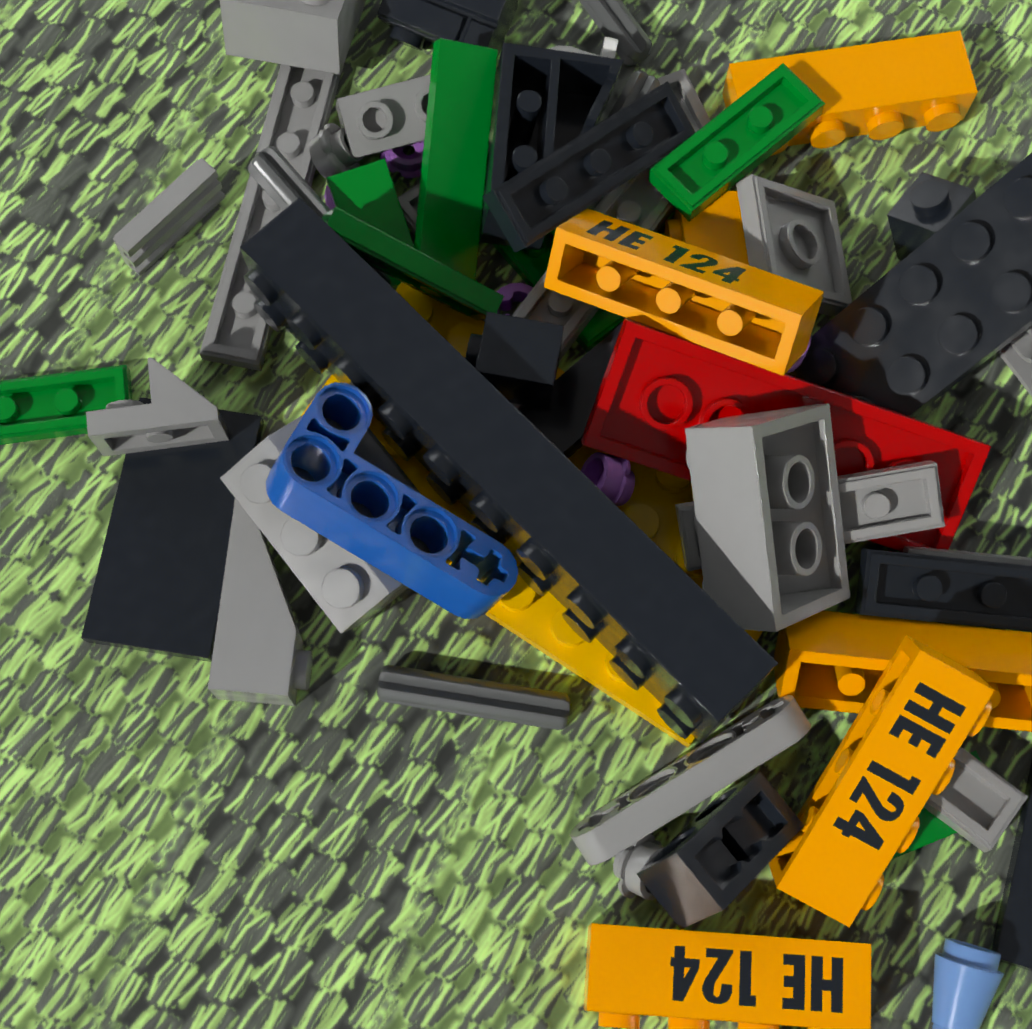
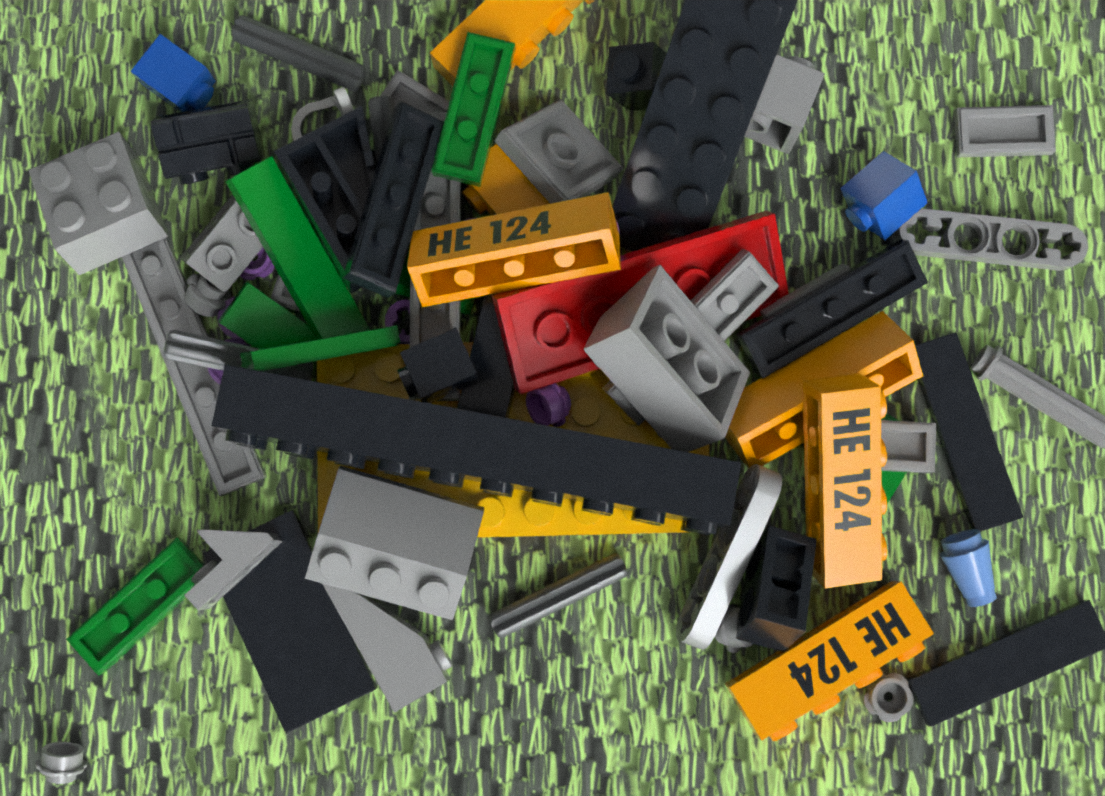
camera: 30 degrees left, 10 degrees up
(169, 216) = (129, 417): light grey tile -> none
(395, 508) = (433, 523): blue beam -> none

